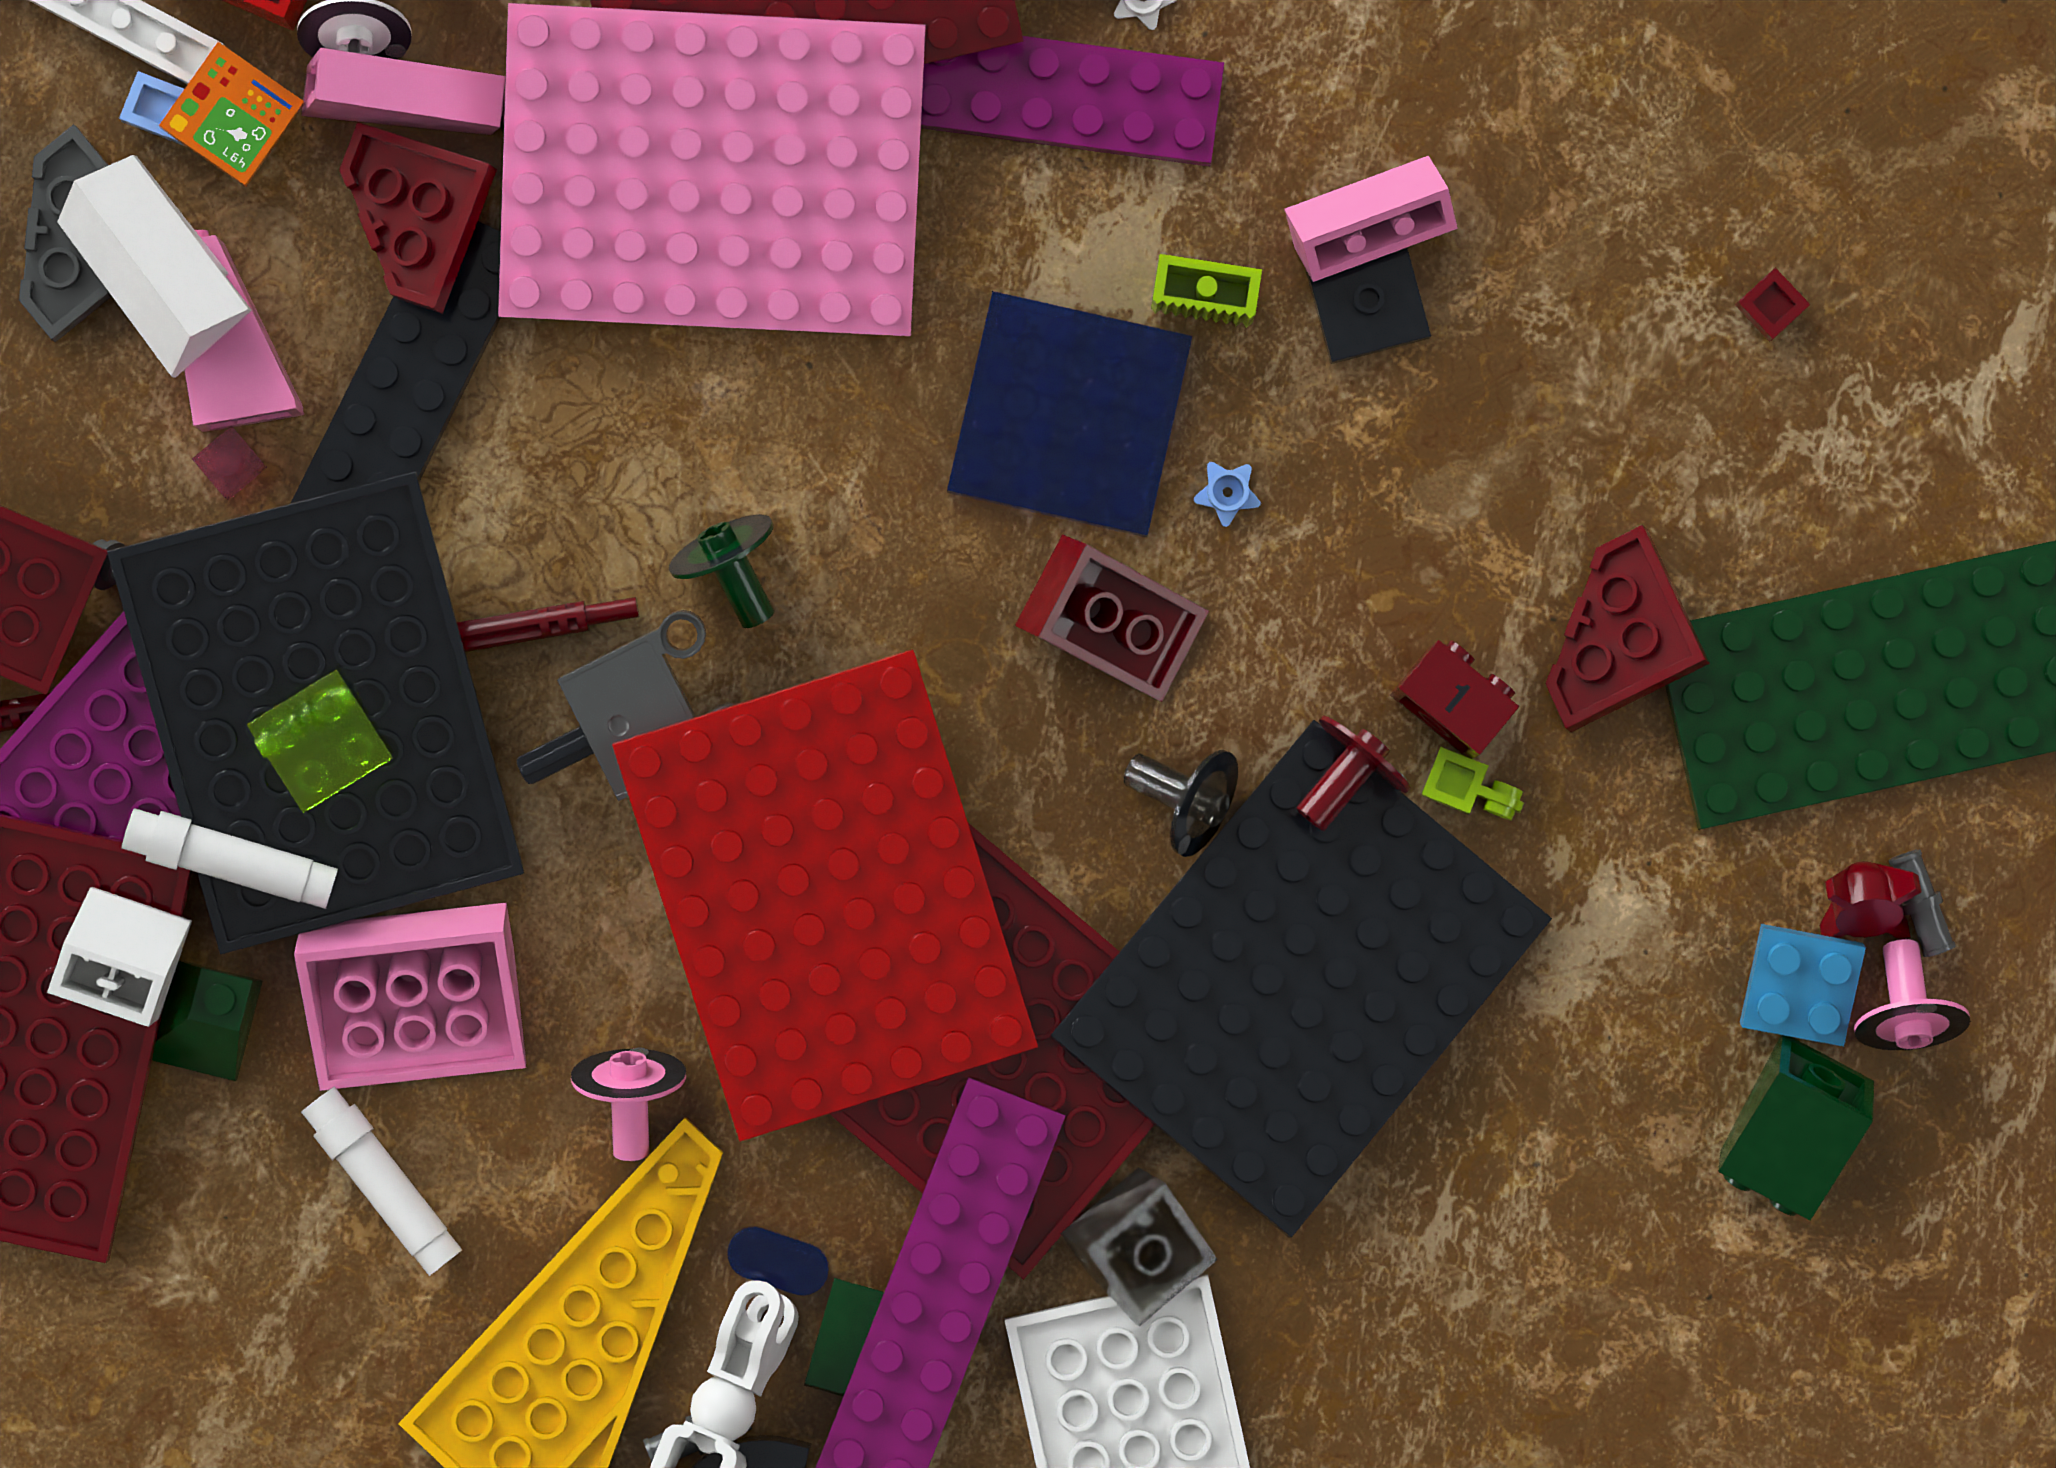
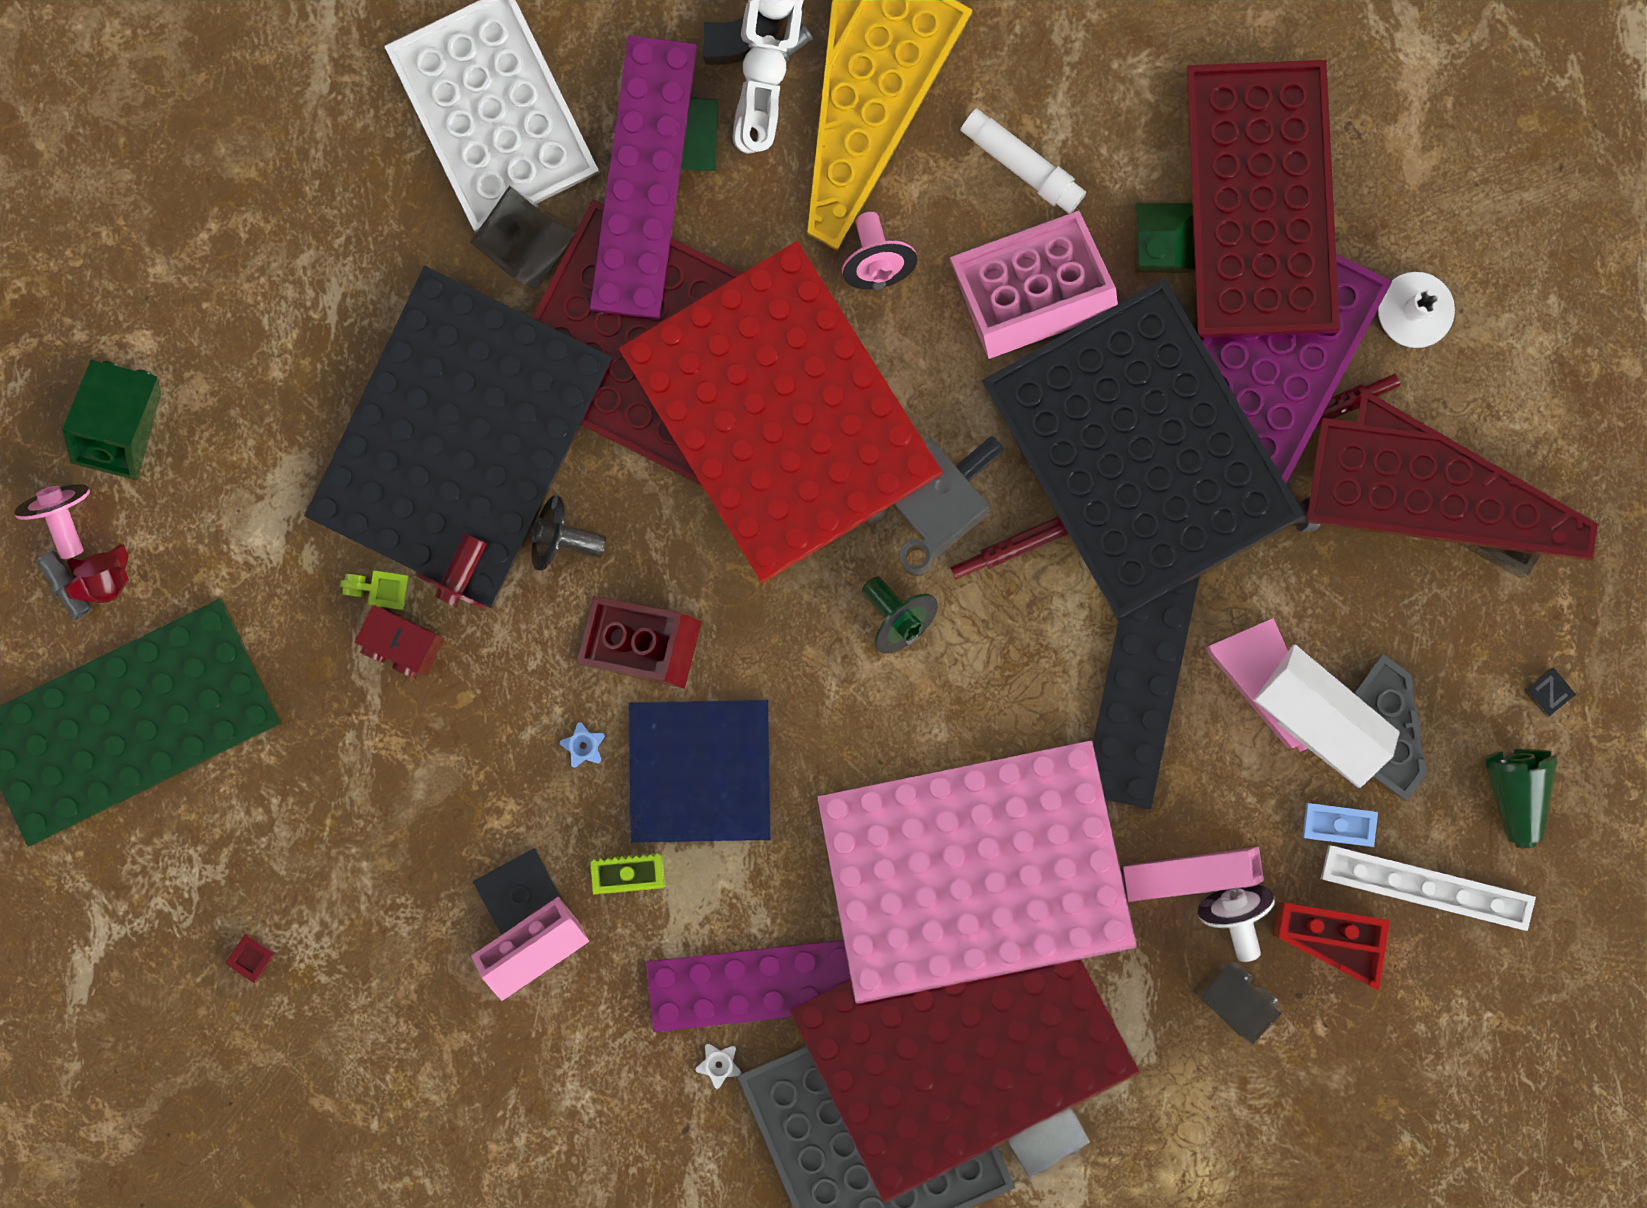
camera: 175 degrees right, 0 degrees up
(120, 957) = (1226, 256): white slope -> none
(178, 843) = (1210, 339): white piece -> none
(229, 463) = (1245, 602): clear pink plate -> none
(231, 114) = (1303, 832): tile -> none
(319, 741) = (1135, 428): clear neon green hinge -> none
(415, 210) = (1164, 797): dark red plate -> none
(778, 1260) = (754, 174): clear blue tile -> none
(1622, 634) = (299, 713): dark red plate -> none
(1802, 985) = (130, 512): dark azure plate -> none

